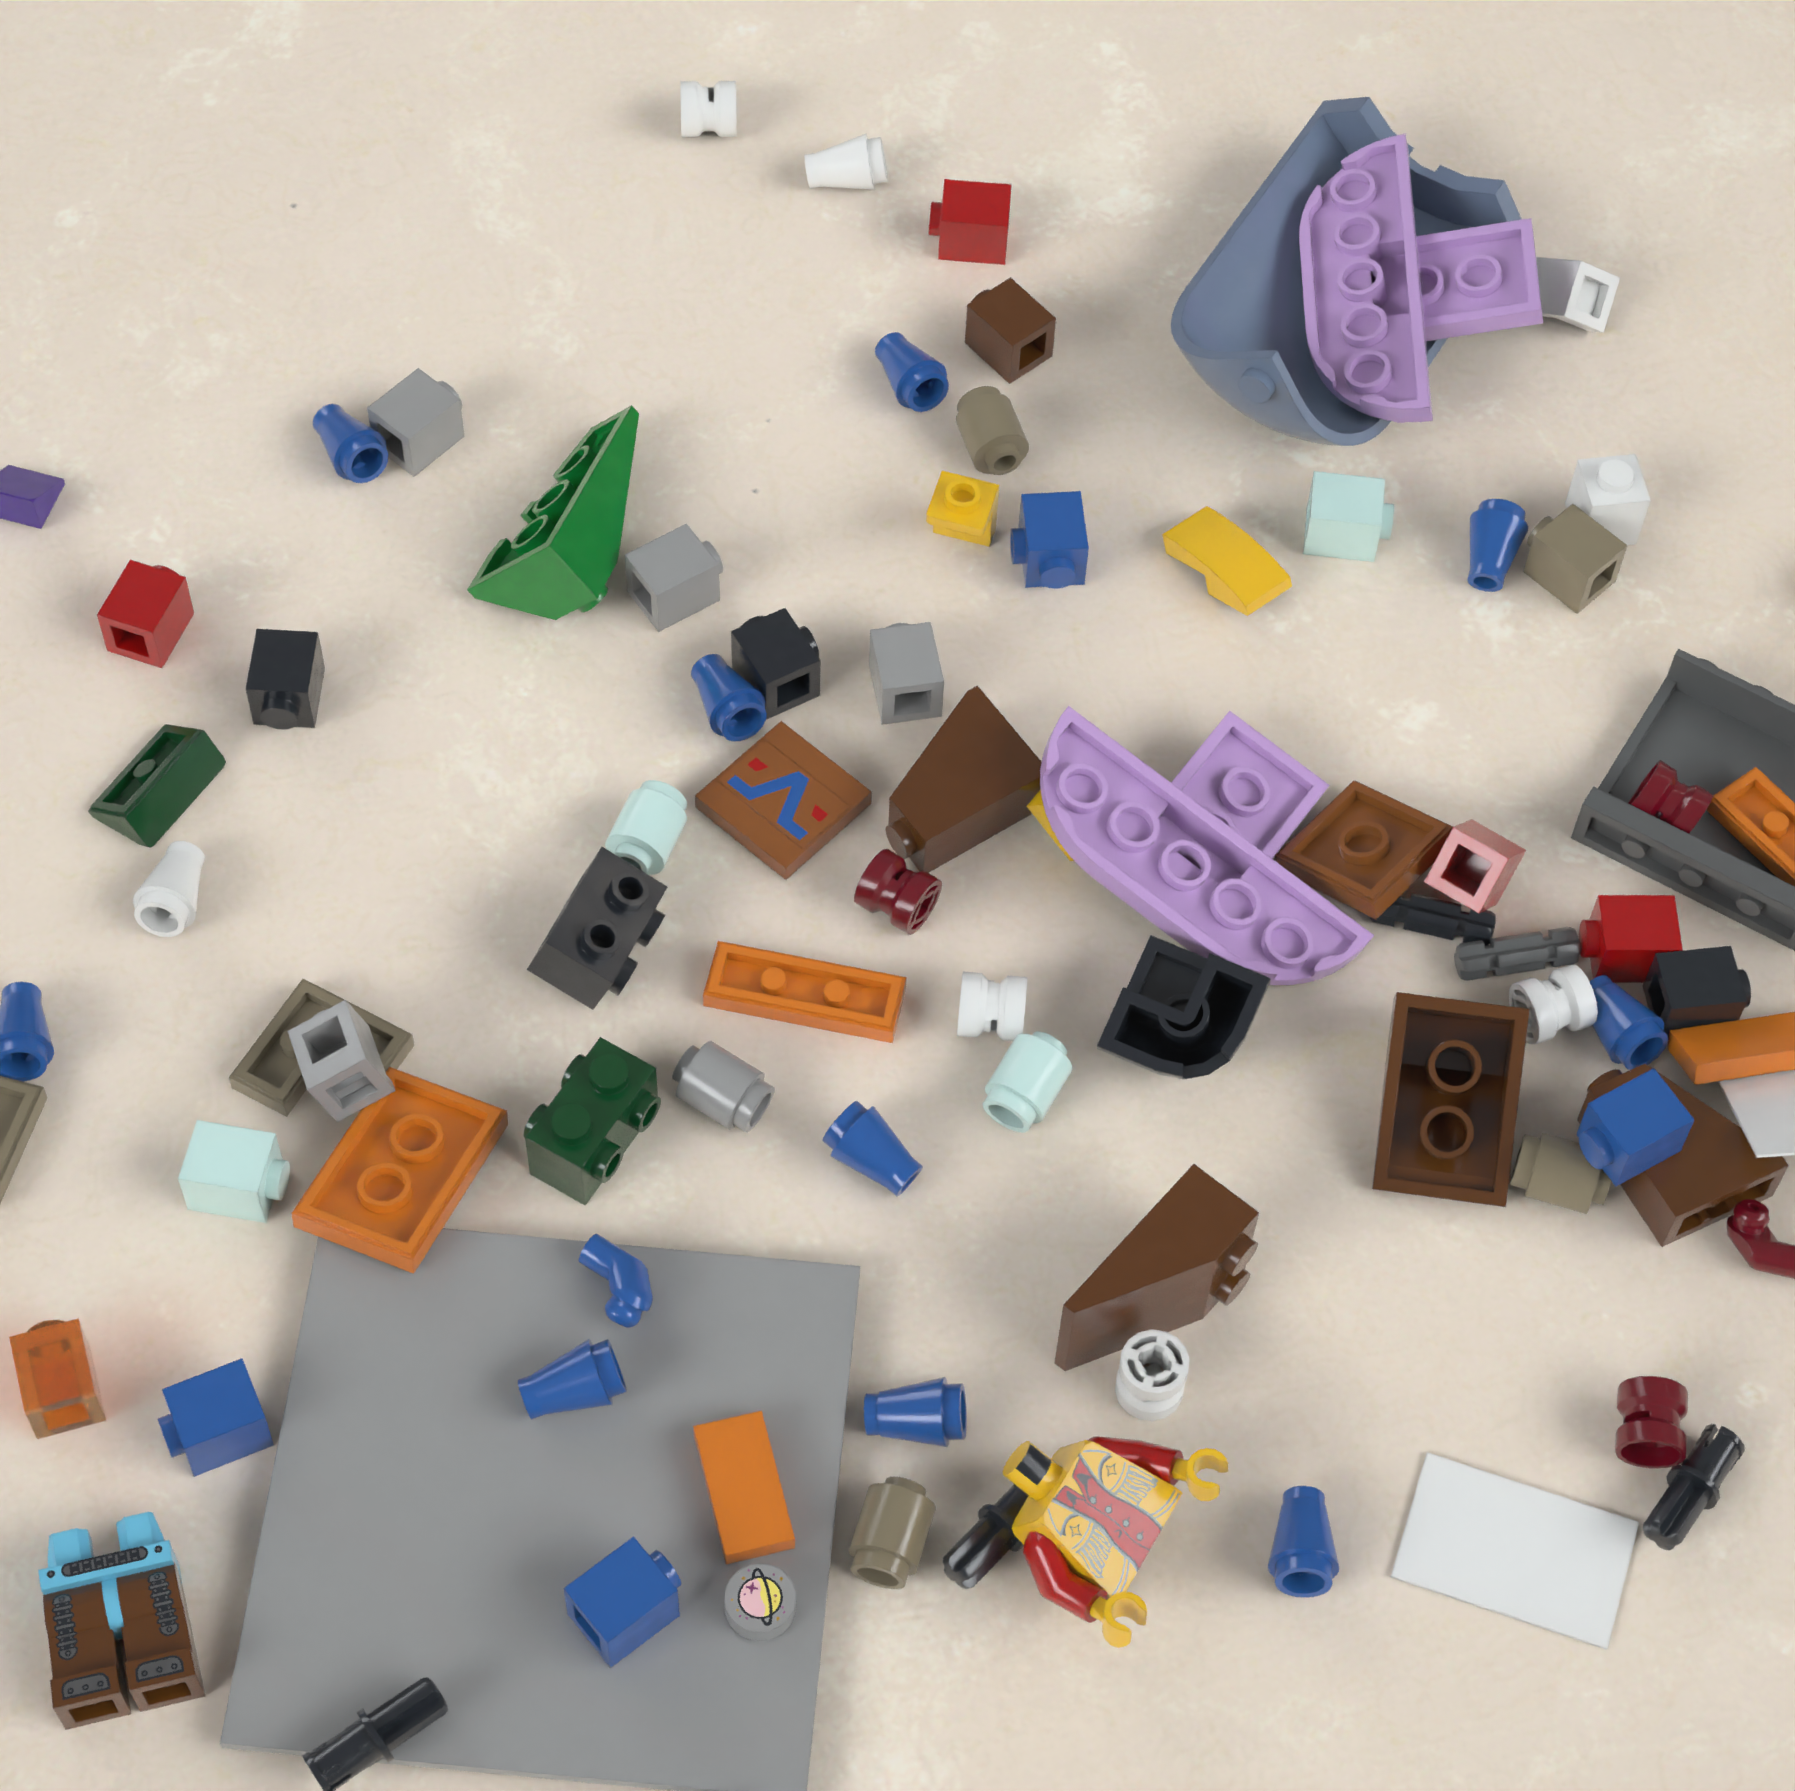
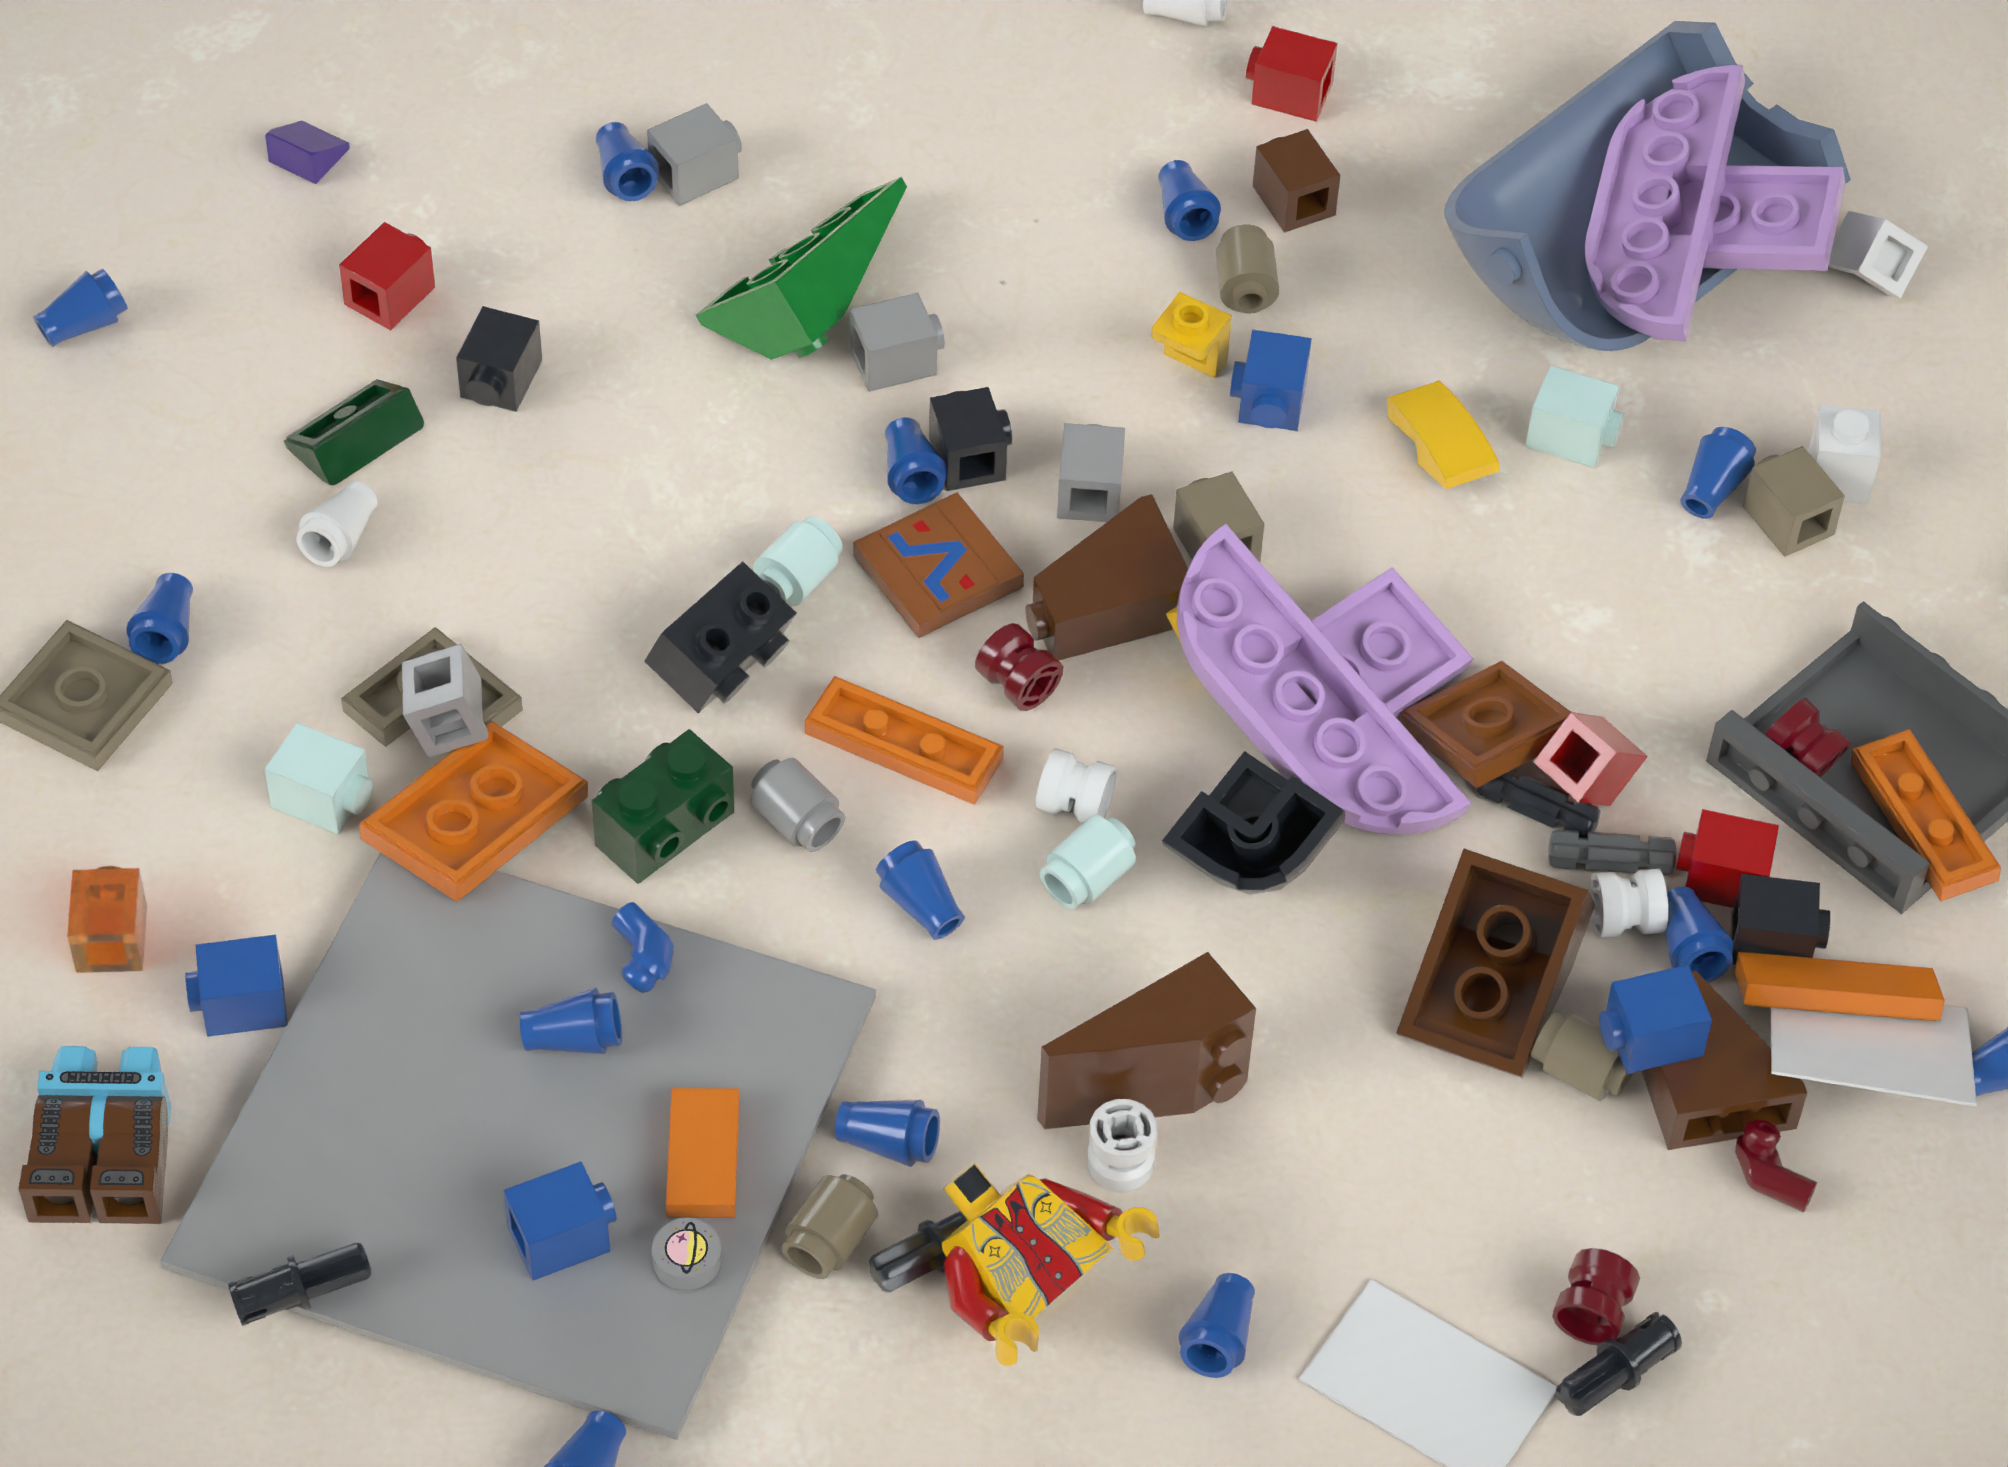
camera: 15 degrees right, 5 degrees down
(1037, 692) = (1209, 505): none -> dark tan brick

